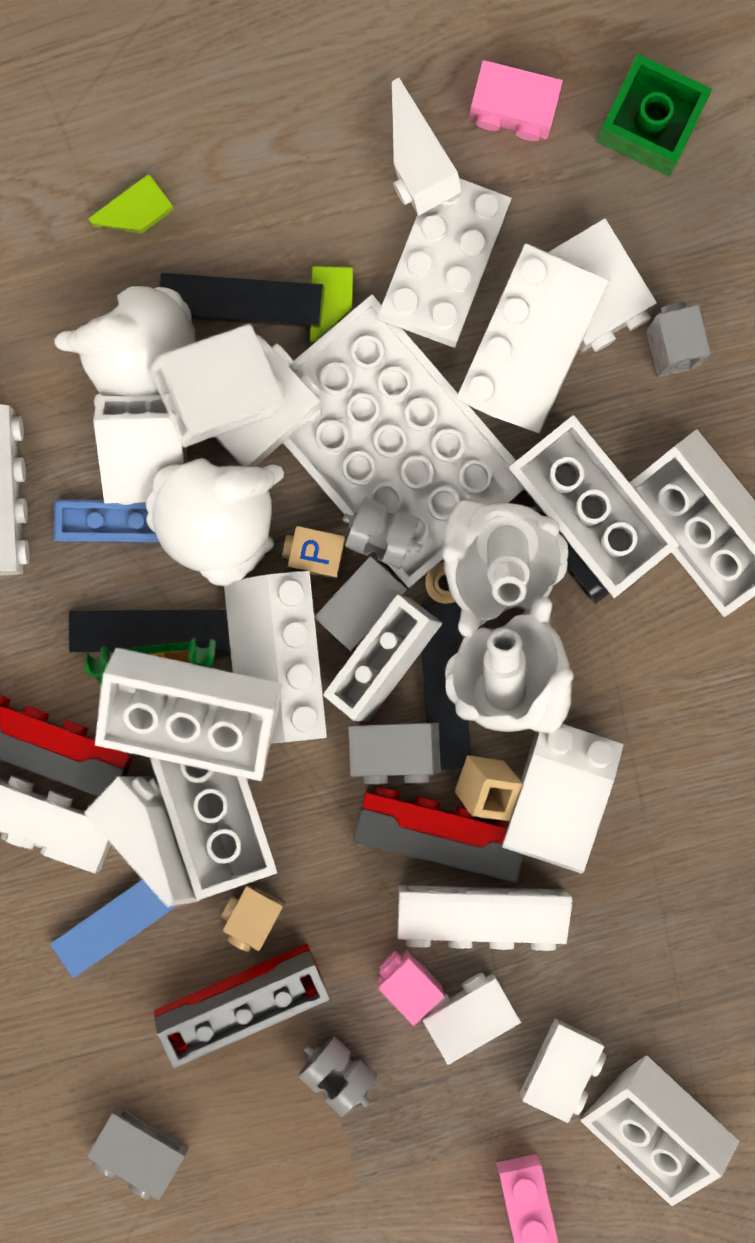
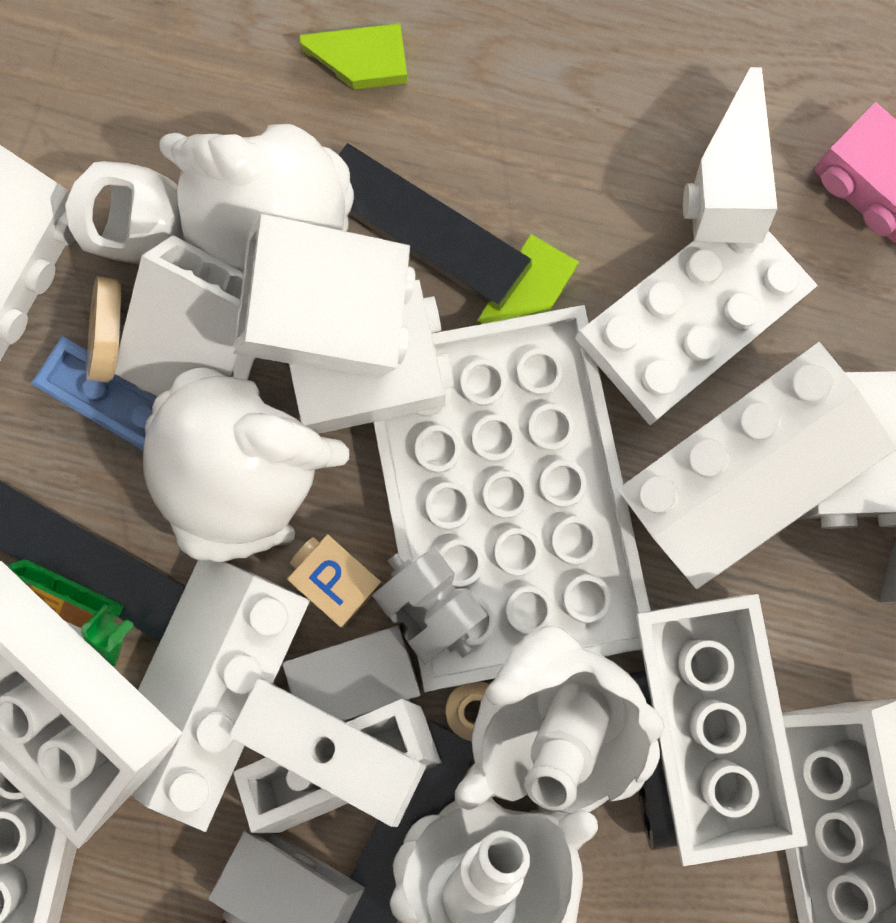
camera: 30 degrees right, 5 degrees down
(55, 398) = (140, 214): none -> white piece
(81, 480) = (103, 329): none -> tan tile
(347, 646) = (294, 736): none -> white tile

